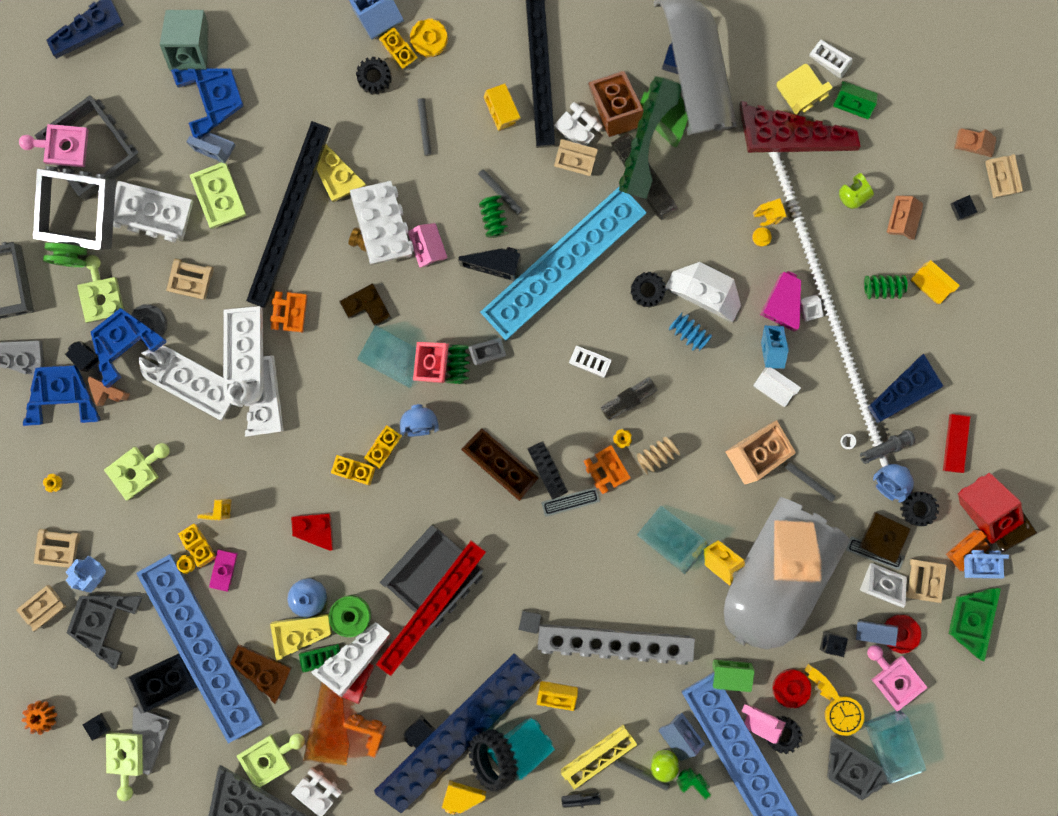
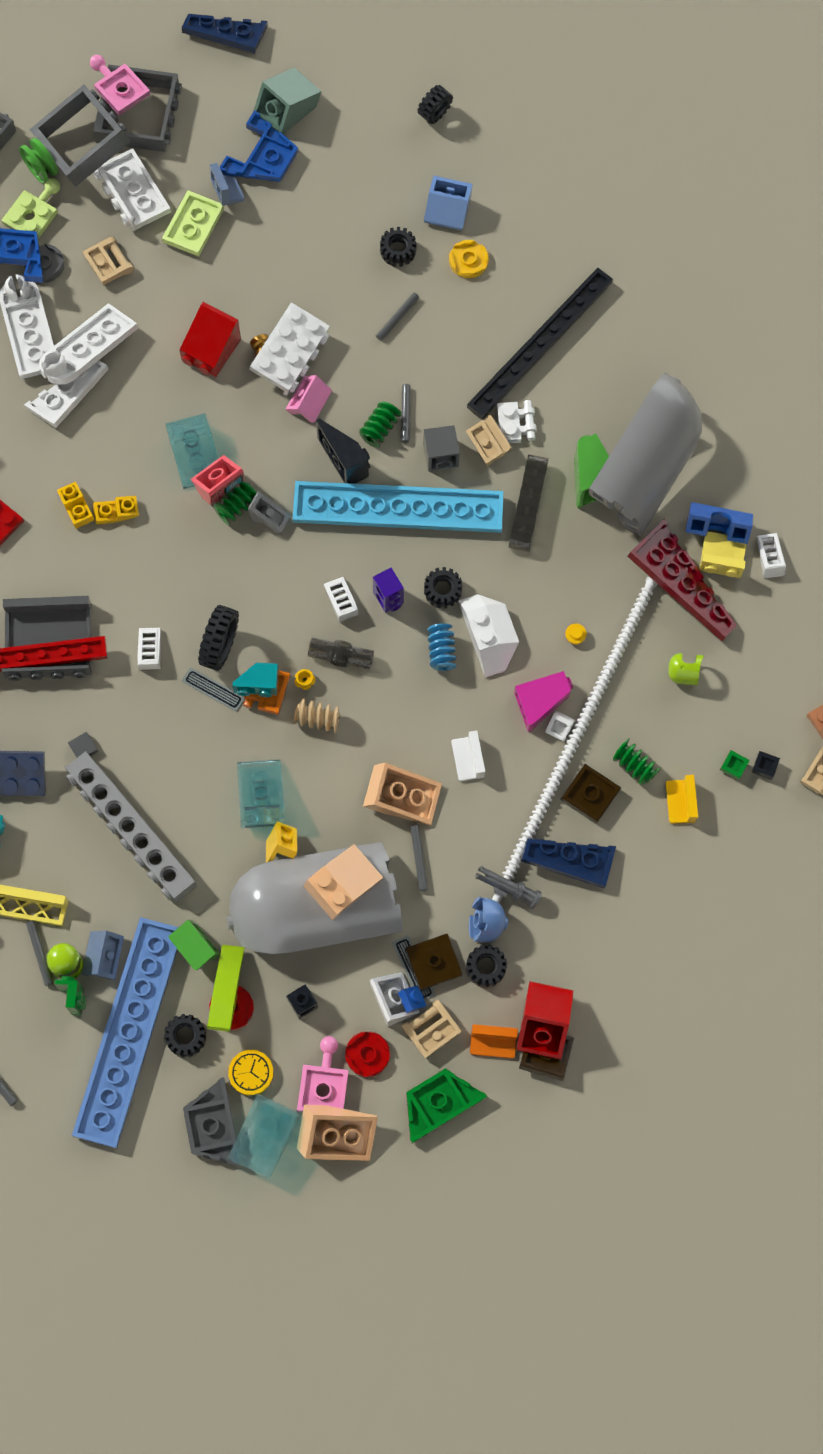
camera: 45 degrees right, 15 degrees down
(288, 214) = (228, 281): black plate -> none
(294, 312) = (157, 353): orange plate -> none
(322, 270) = (210, 340): none -> red slope
(337, 175) = (294, 283): light yellow wing -> none
(368, 300) = (221, 397): dark brown plate -> none
(398, 48) = (437, 244): yellow slope -> none
(418, 421) = (161, 514): medium blue cylinder -> none
(500, 464) = (188, 604): reddish brown slope -> none
(501, 106) = (471, 353): yellow hinge -> none
(514, 528) = (147, 664): none -> white slope
(552, 194) = (441, 447): none -> dark grey head
(557, 696) = (41, 825): yellow slope -> none
(600, 470) = (258, 679): none -> teal slope
(616, 103) = (561, 431): dark orange slope -> none
(620, 328) = (388, 590): none -> dark purple brick
(662, 97) = (517, 490): dark green arch -> none
(763, 723) = (177, 1005): bright pink panel -> none
(772, 211) = (601, 614): yellow hinge -> none
(774, 346) = (495, 719): dark azure brick -> none
(782, 684) = (225, 988): none -> lime slope
(791, 60) = (733, 523): none -> blue arch
(824, 685) = (259, 1031): yellow slope -> none
(843, 441) = (479, 852): white hinge -> none
(855, 100) = (758, 602): green panel -> none
(874, 334) = (590, 793): none -> dark brown plate
(876, 632) = (347, 1028): sand blue panel -> none
(897, 575) = (412, 999): none -> blue plate
(905, 216) = (710, 728): nougat panel -> none
(935, 704) = (336, 1133): none -> light nougat slope
(944, 227) = (734, 765): none -> green plate
(956, 443) = (571, 945): red tile -> none
(984, 565) = (494, 1062): light blue bracket -> none

